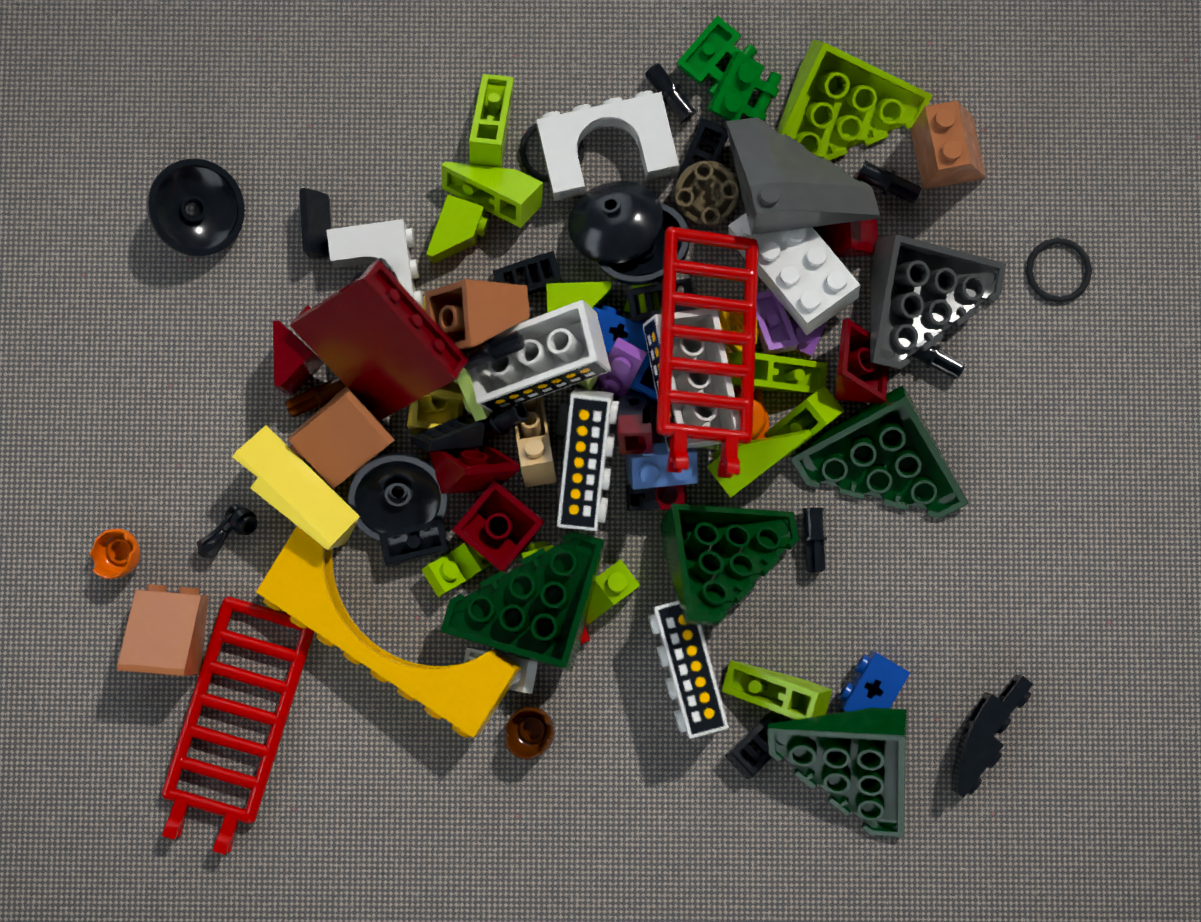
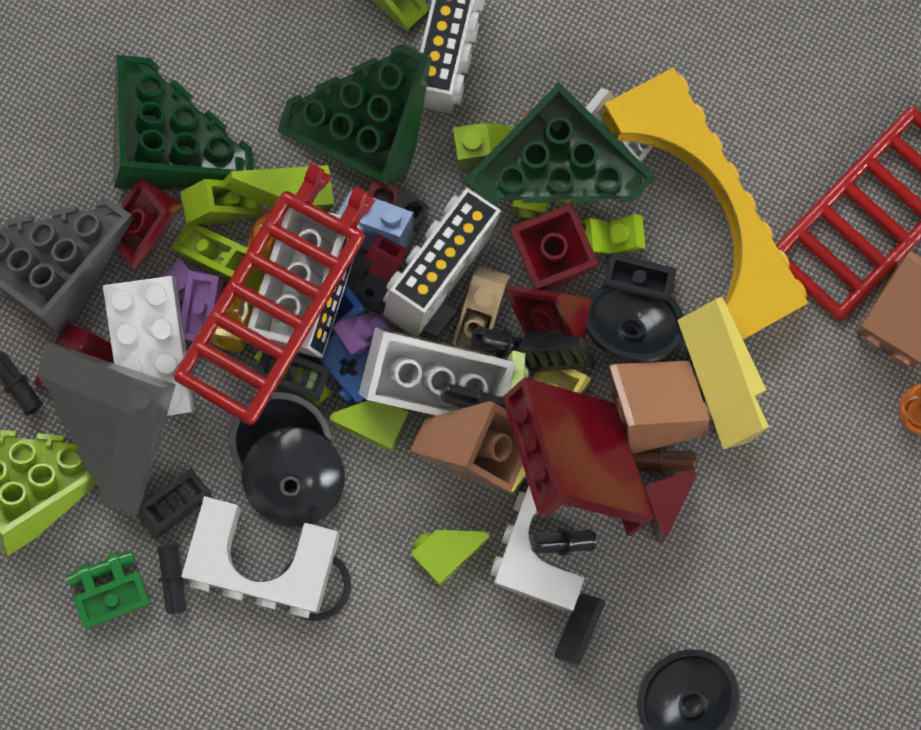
camera: 150 degrees left, 5 degrees down
(241, 522) = (792, 378): black piece -> none
(491, 121) = (358, 639): lime slope -> none
(500, 190) = (389, 566): lime slope -> none
(524, 266) = (388, 481): black slope -> none
(529, 733) = (621, 55): reddish brown hair -> none
(706, 193) = (192, 461): dark tan tile -> none
(737, 86) = (106, 546): green plate -> none
(814, 539) = (272, 96): black axle -> none
(941, 361) = (64, 191): black axle -> none

